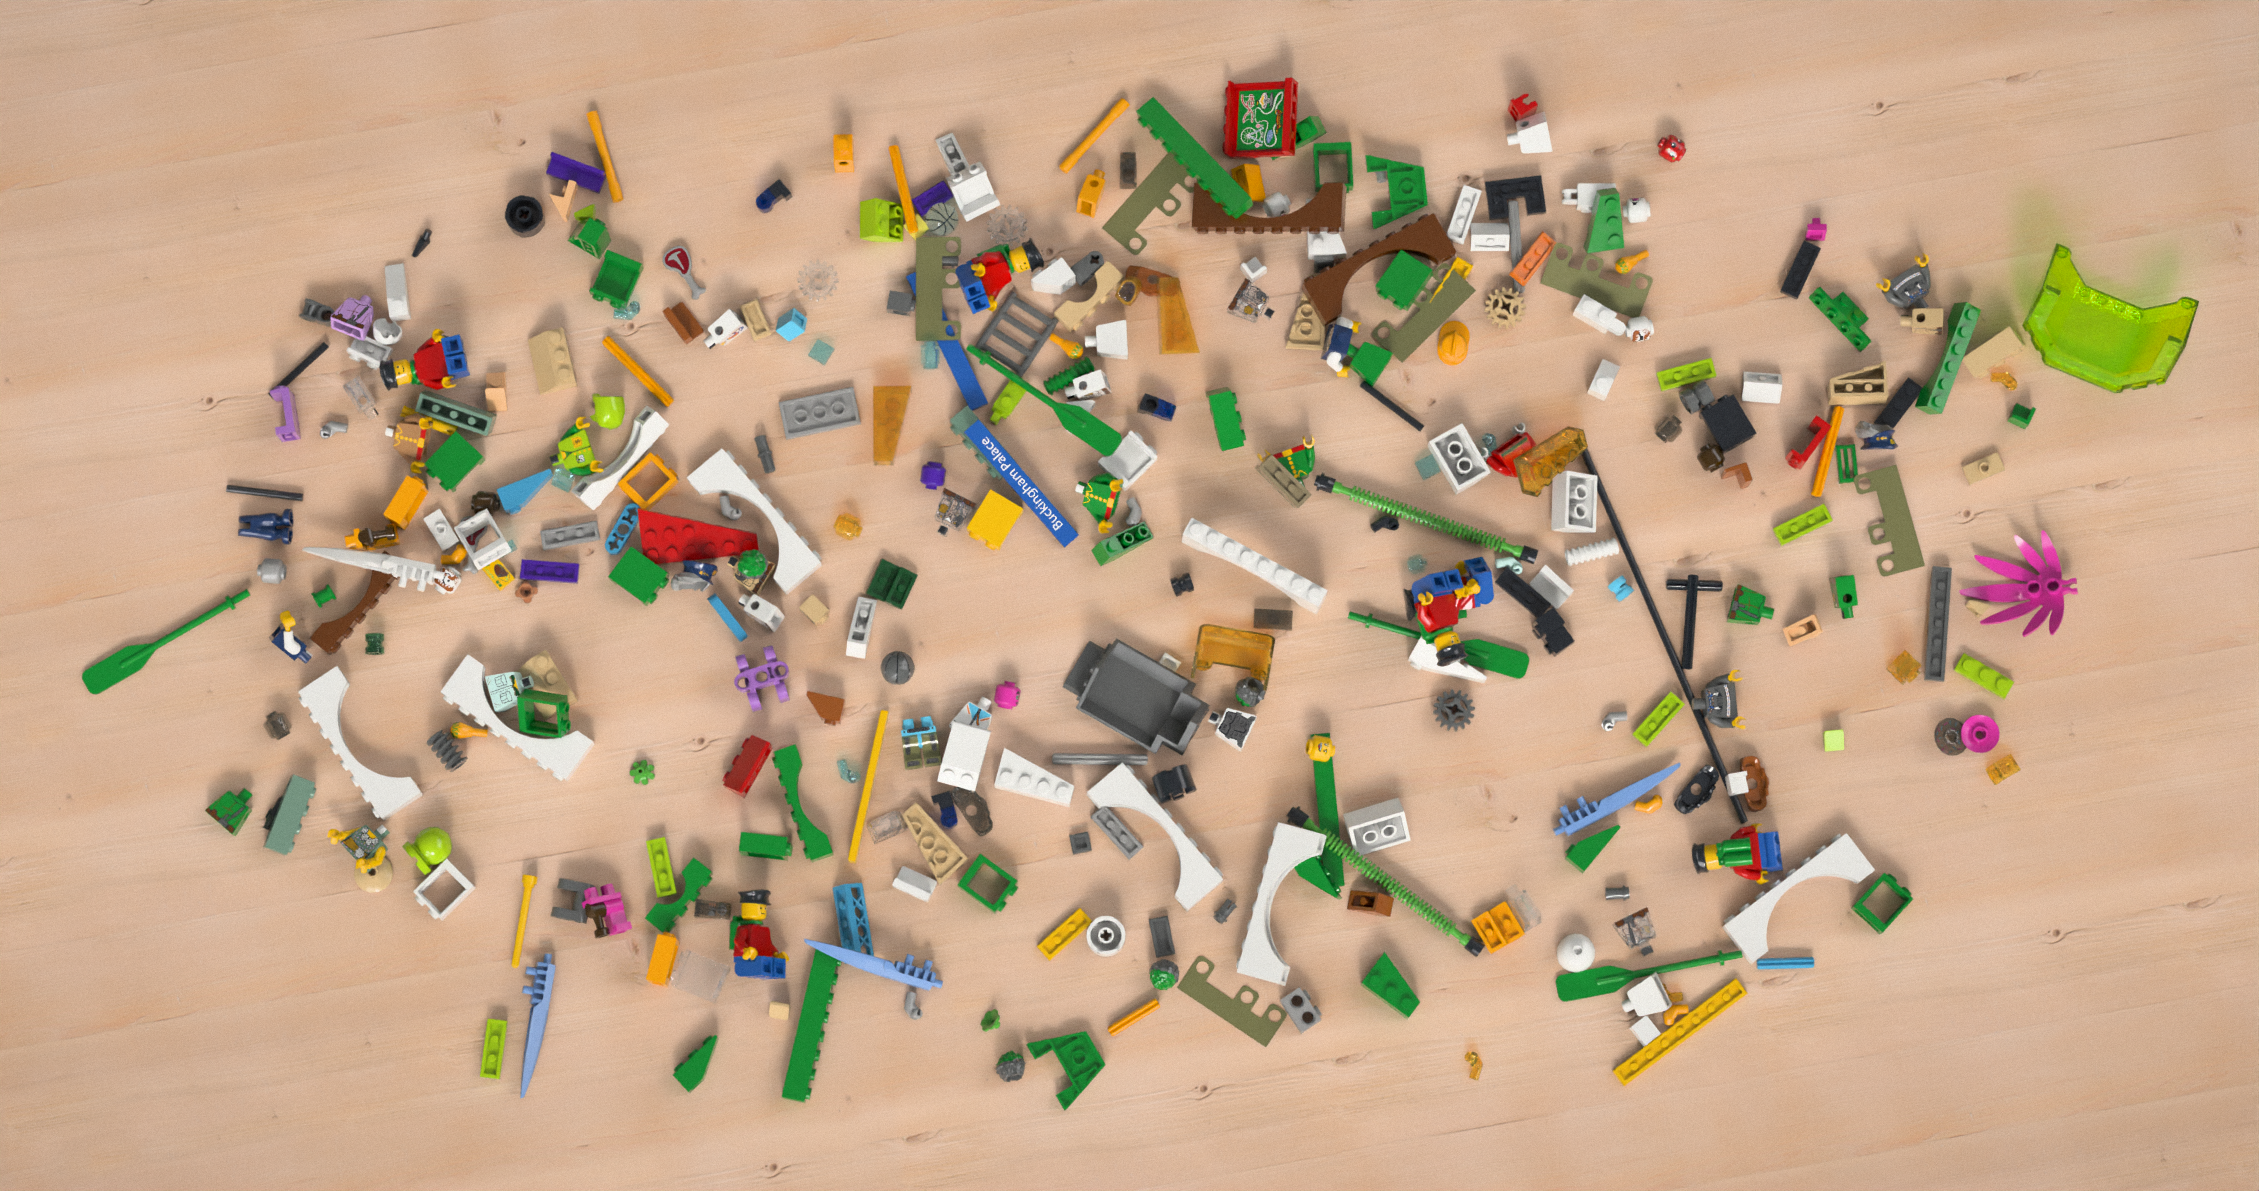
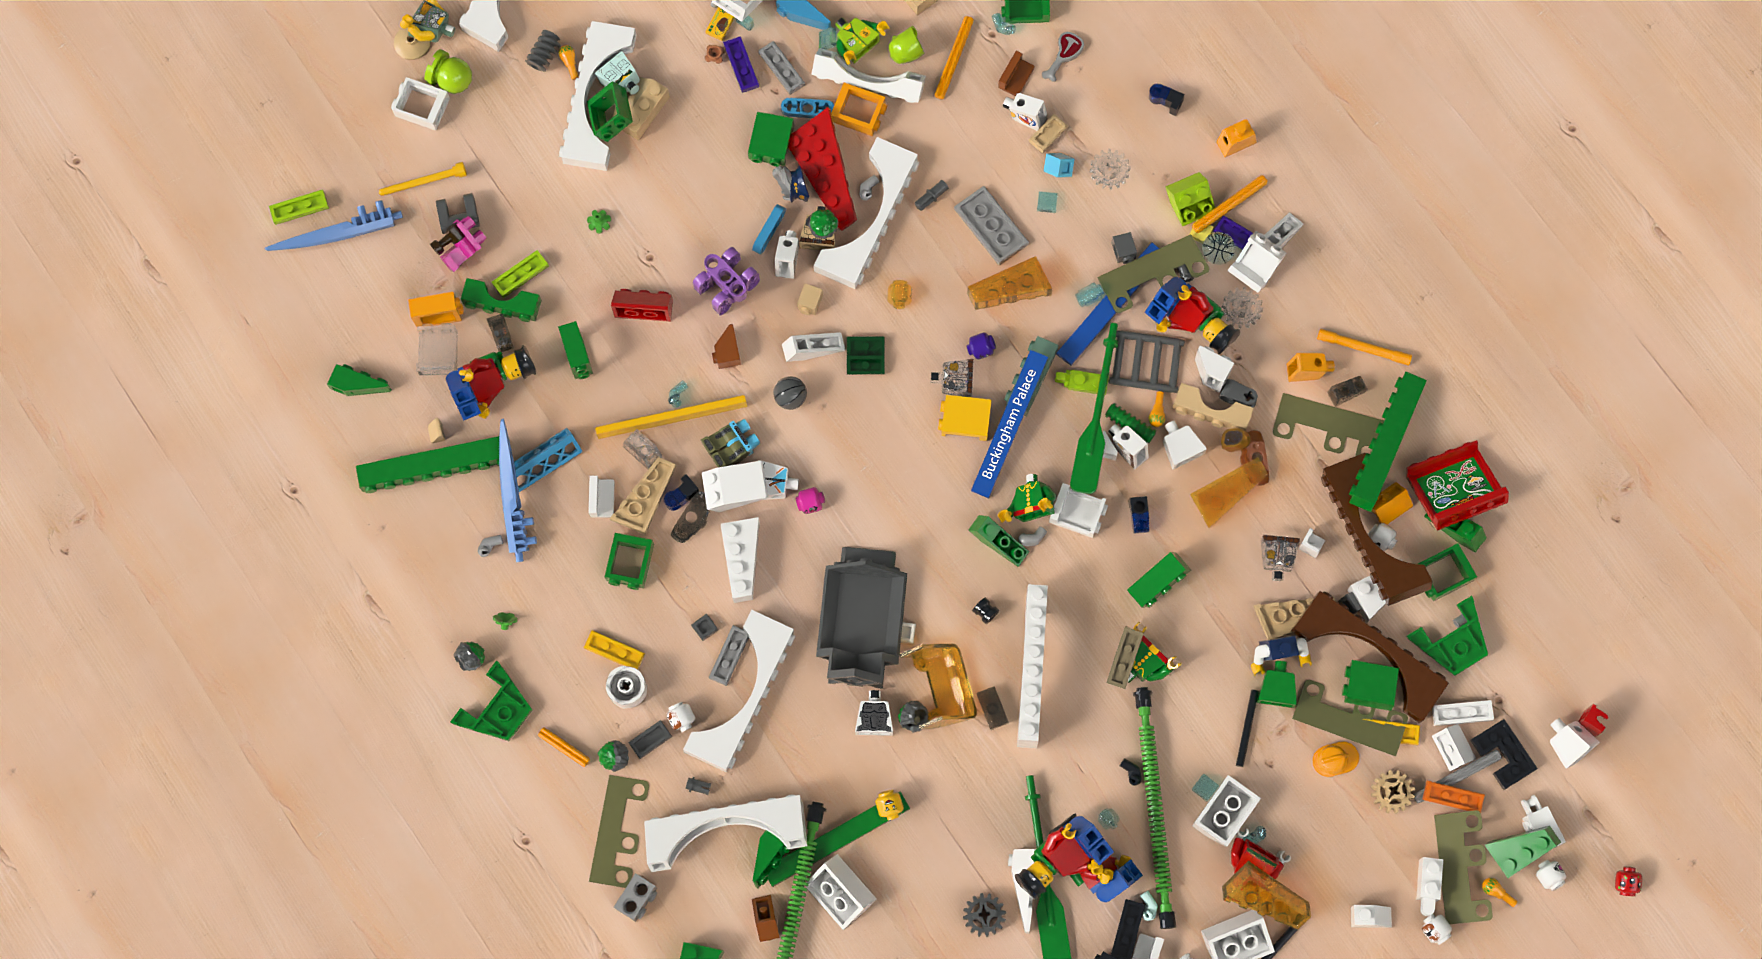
camera: 70 degrees right, 5 degrees down
(790, 765) = (659, 341): green arch -> none
(1099, 759) = (790, 610): light grey axle -> none
(1155, 899) = (680, 716): none -> white head
(1174, 783) = (795, 684): black brick -> none

